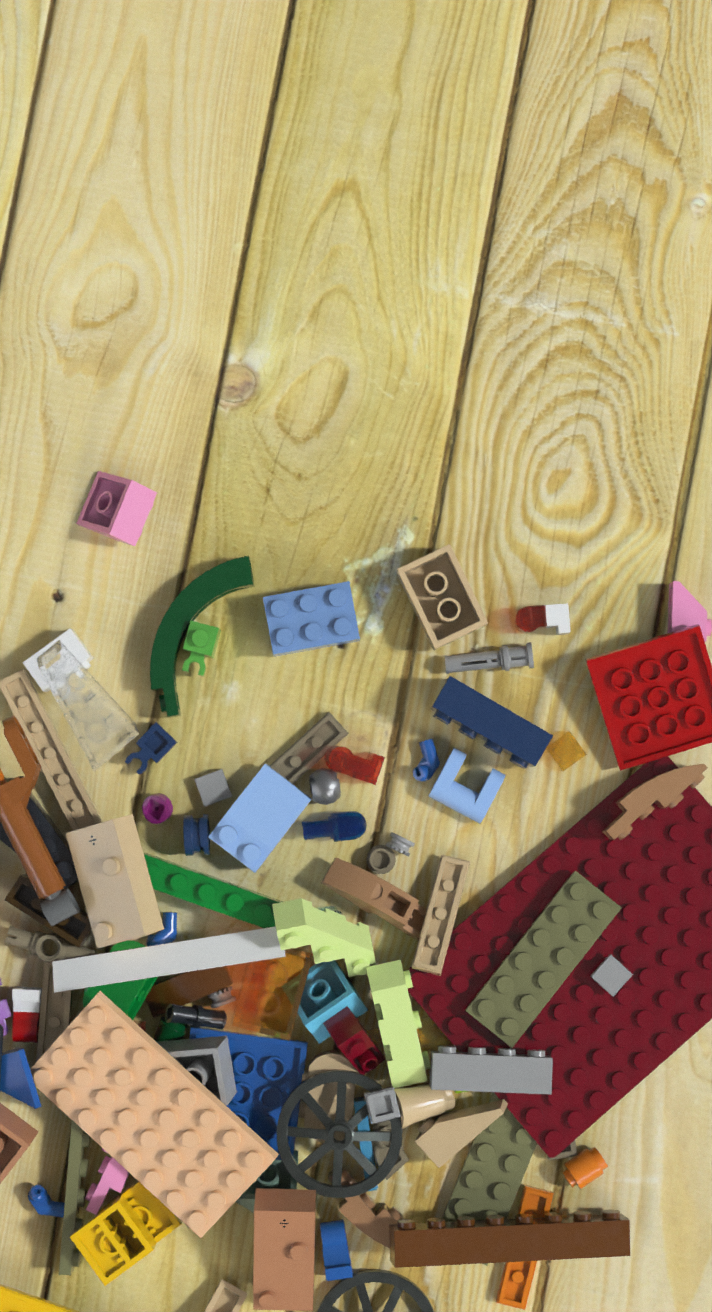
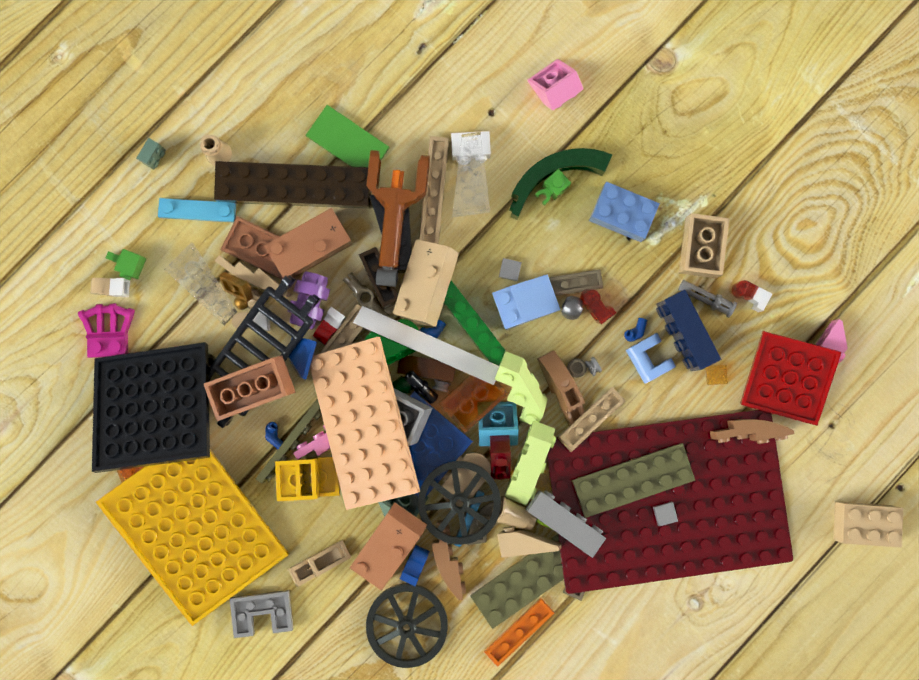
camera: 30 degrees right, 0 degrees up
(153, 745) = (493, 225): dark blue plate -> none
(157, 808) = (472, 260): magenta tile -> none
(196, 834) = (485, 288): dark blue wheel -> none
(338, 826) = (564, 334): clear blue arm -> none
(382, 1105) = (494, 502): light grey tile -> none
(509, 1239) = (515, 623): reddish brown brick -> none
(584, 1168) = (581, 610): orange brick -> none

